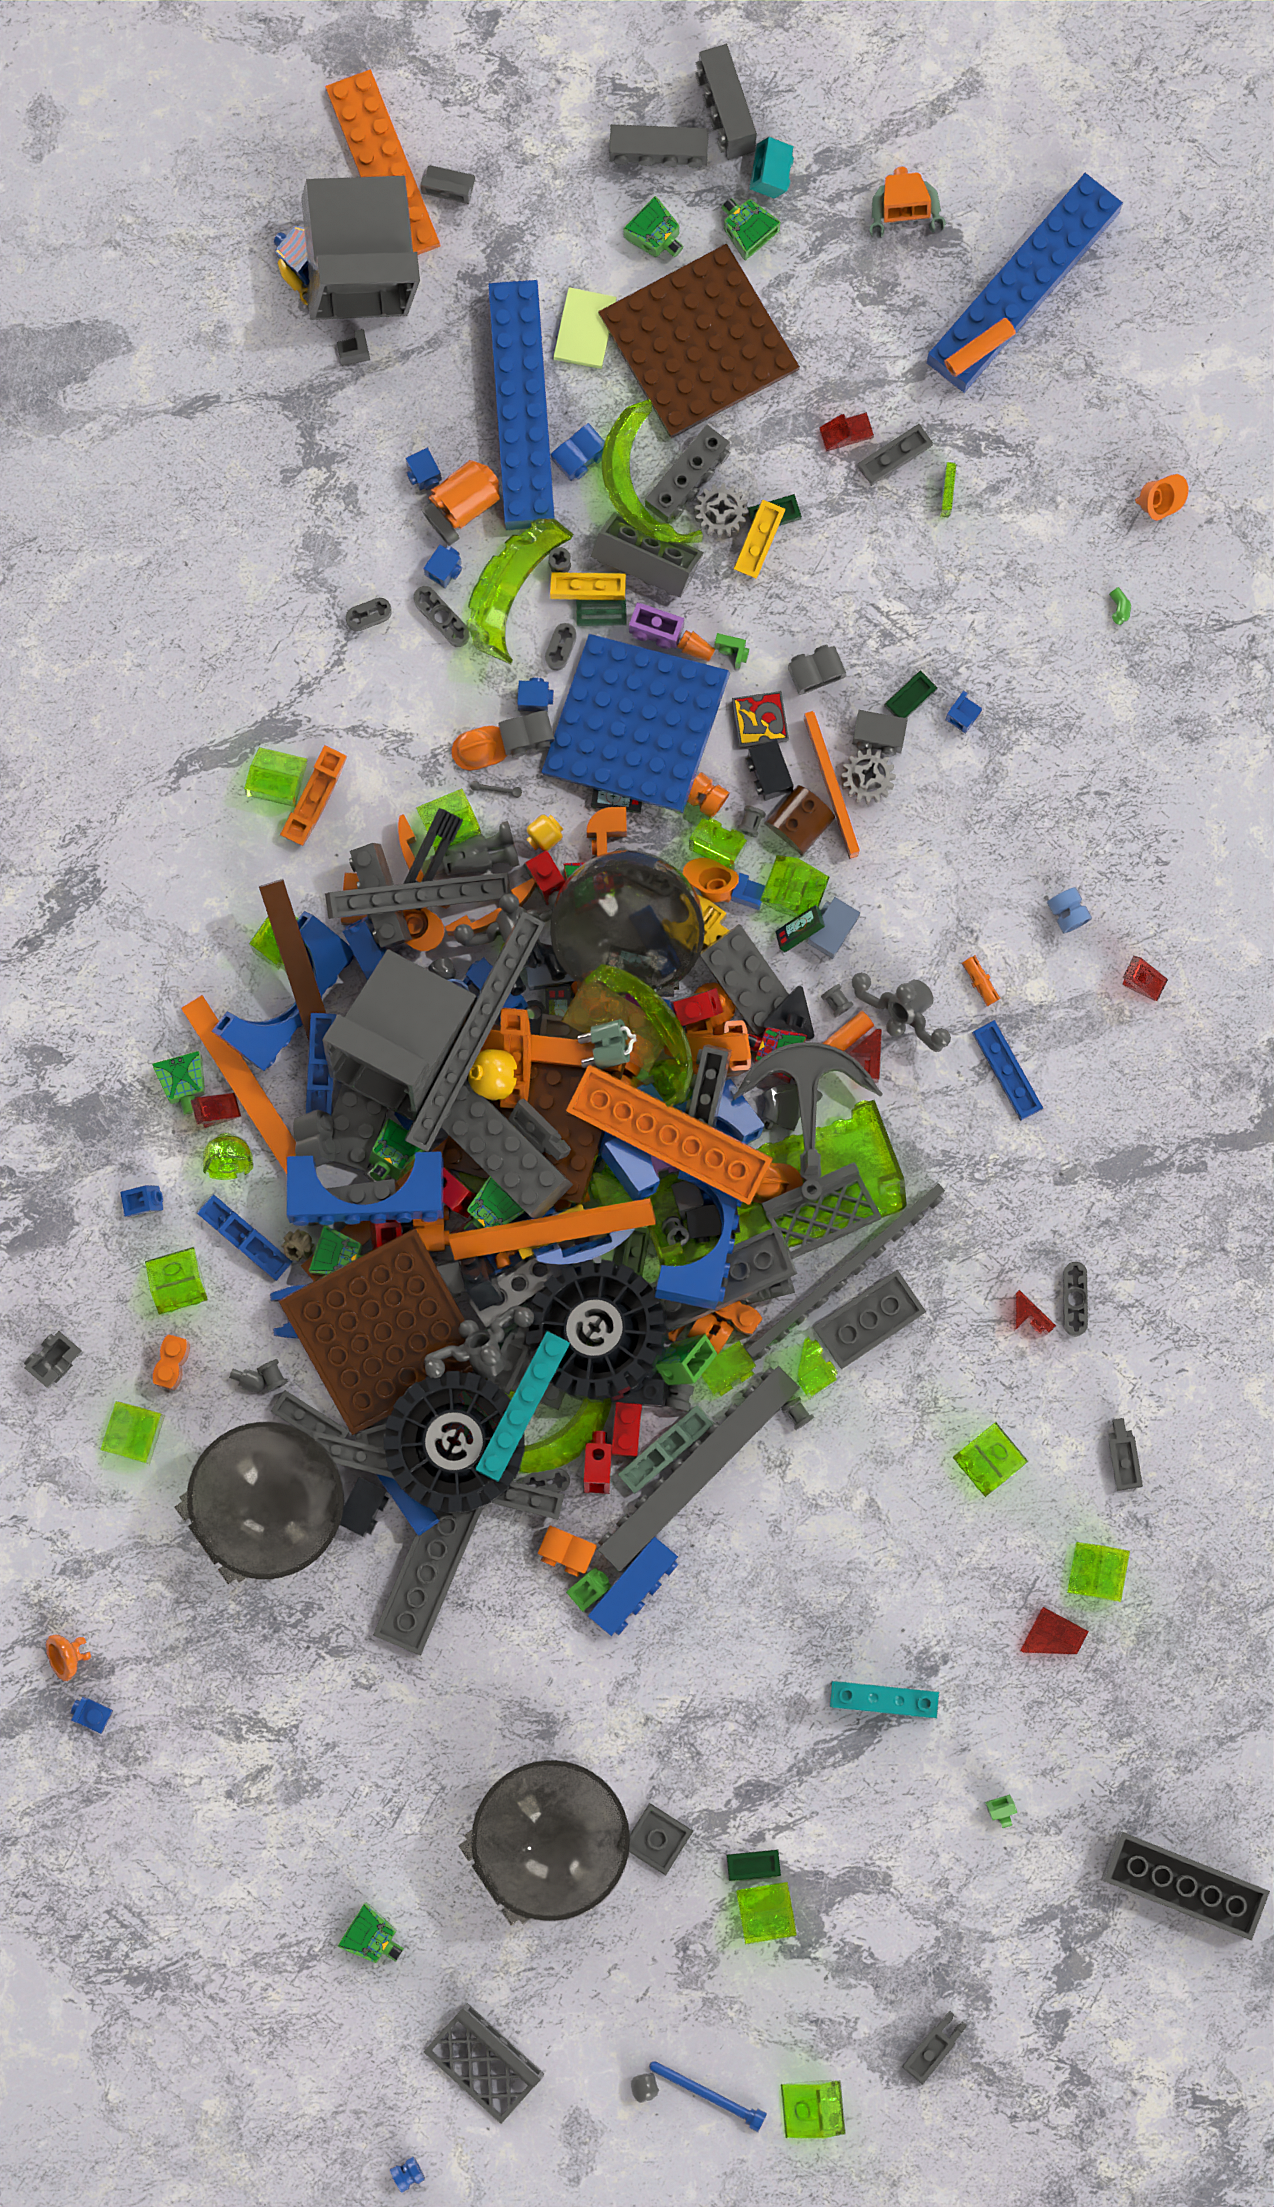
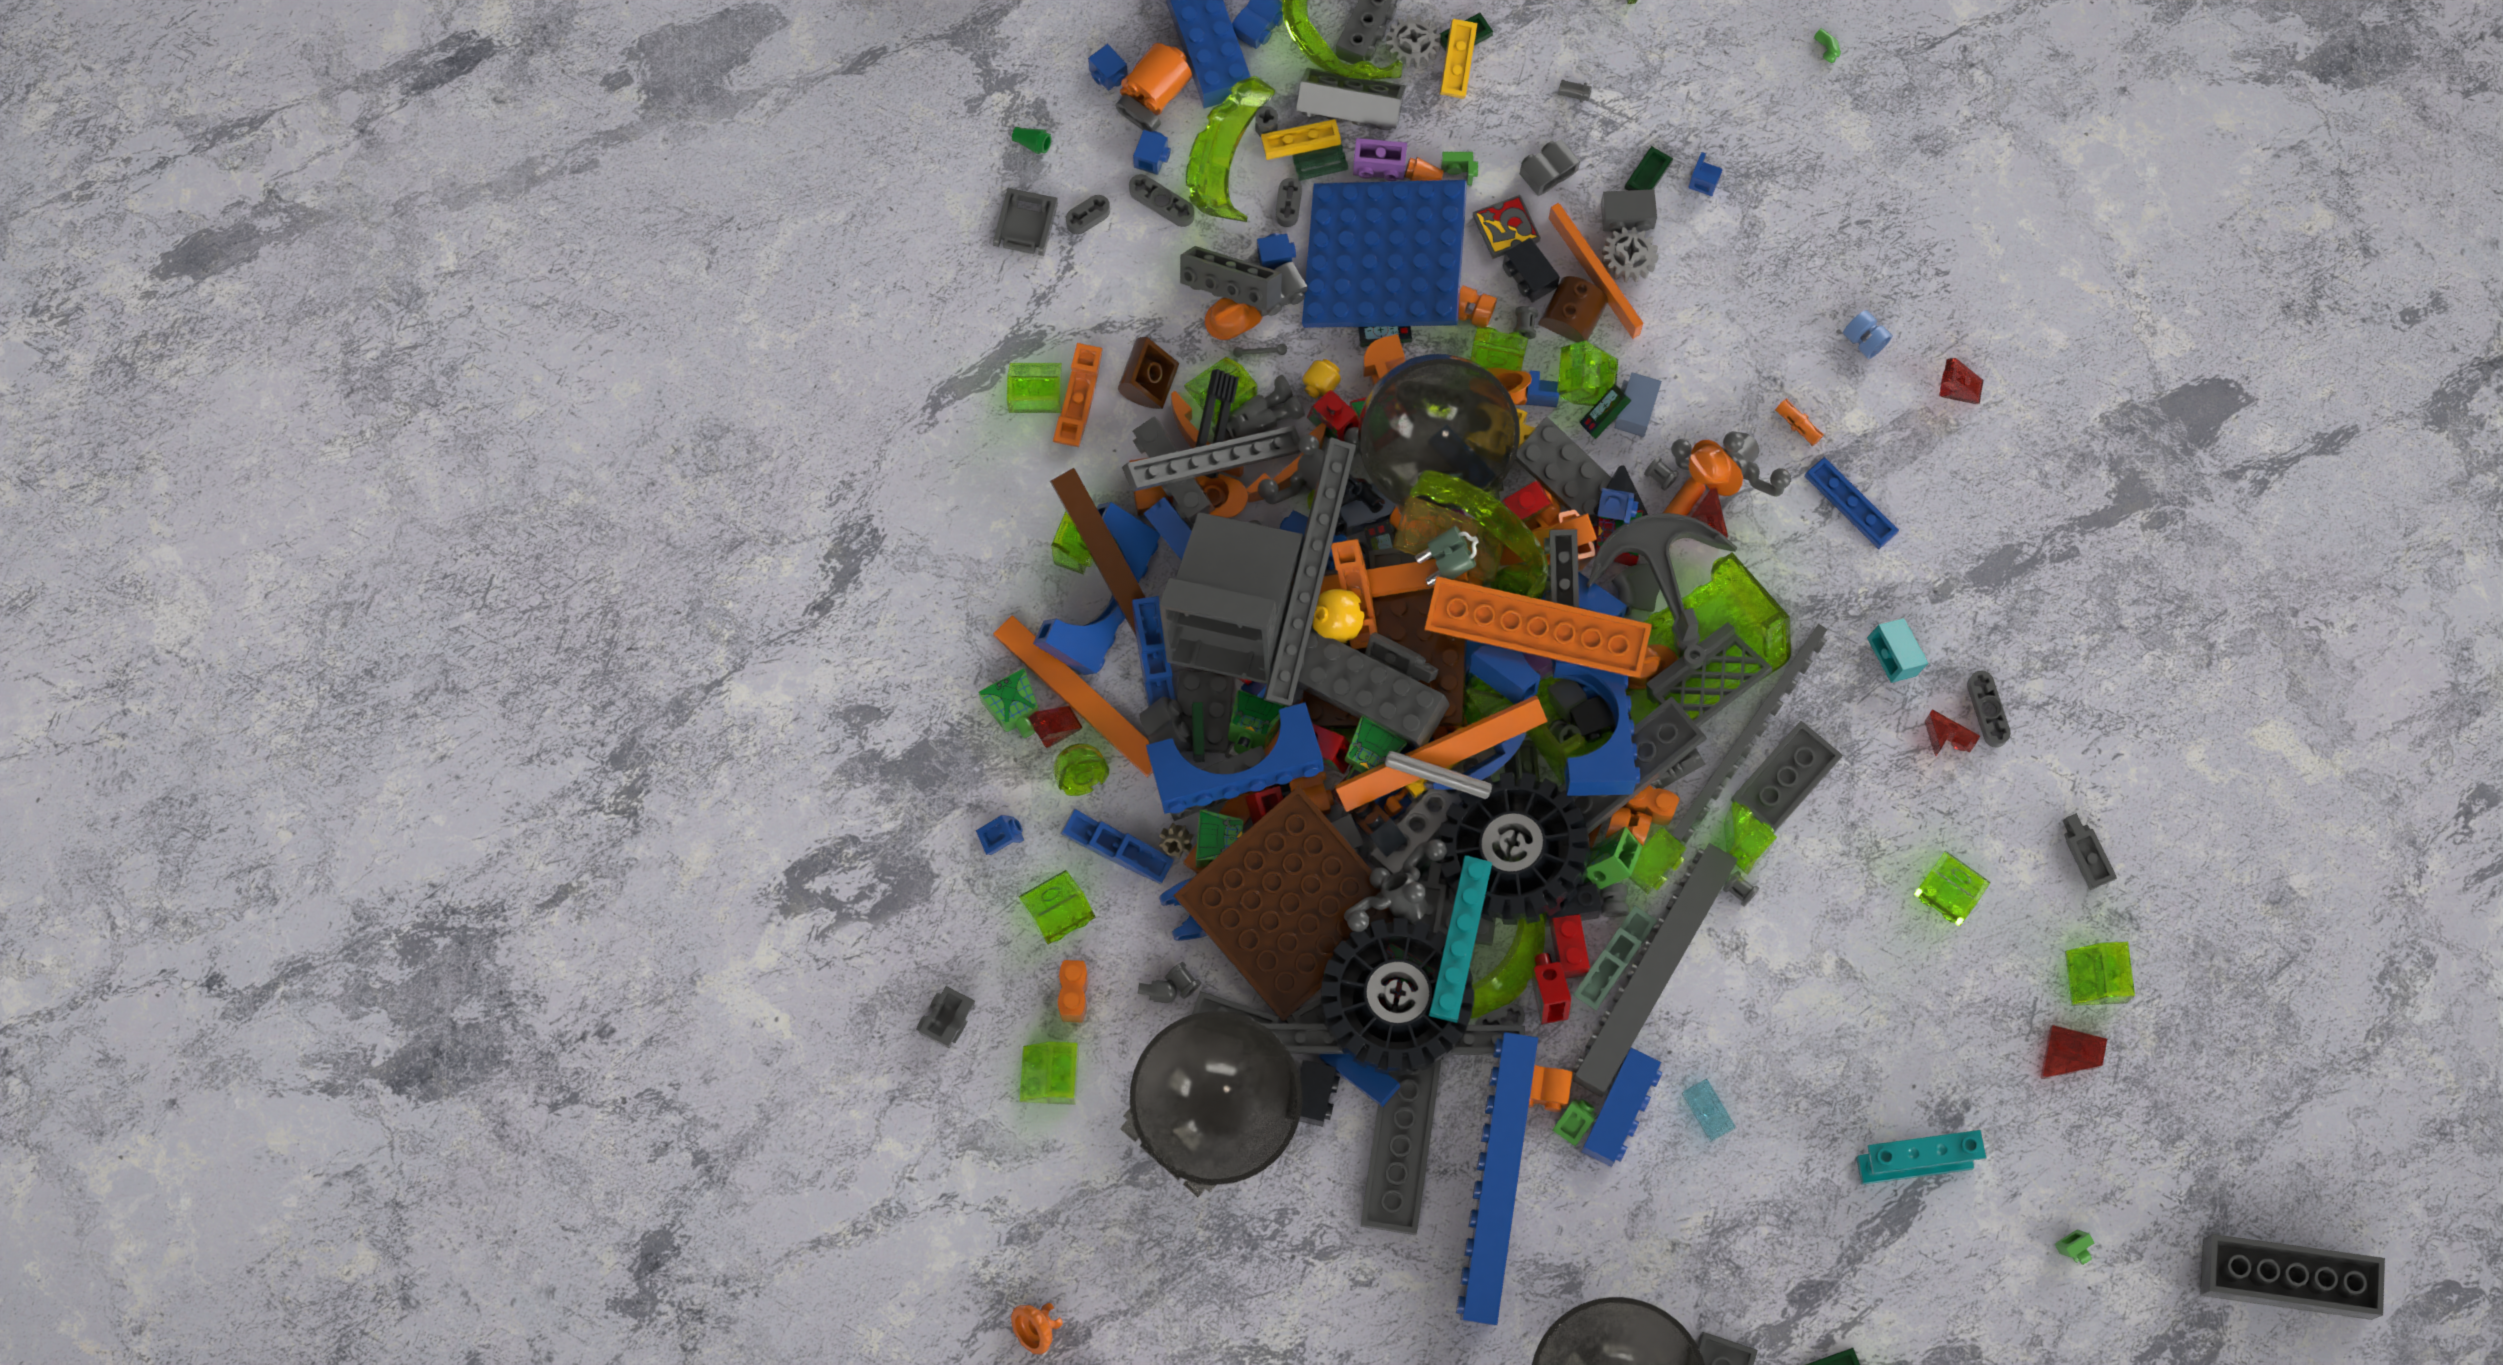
camera: 15 degrees left, 10 degrees down
(305, 613) = (1025, 228): none -> dark grey container
(337, 527) = (1034, 139): none -> green cone
(341, 1150) = (1198, 732): none -> dark green tile
(384, 791) = (1148, 374): none -> reddish brown brick
(482, 716) = (1230, 278): none -> dark grey brick
(501, 1628) = (1498, 1180): none -> blue brick
(542, 1249) = (1438, 774): none -> light grey axle
(711, 1607) = (1708, 1110): none -> clear light blue plate
(782, 1026) = (1617, 505): none -> blue bracket
(863, 596) = (1575, 90): none -> dark grey pin
(882, 1009) = (1715, 468): none -> orange piece
(1005, 1225) = (1897, 650): none -> teal brick

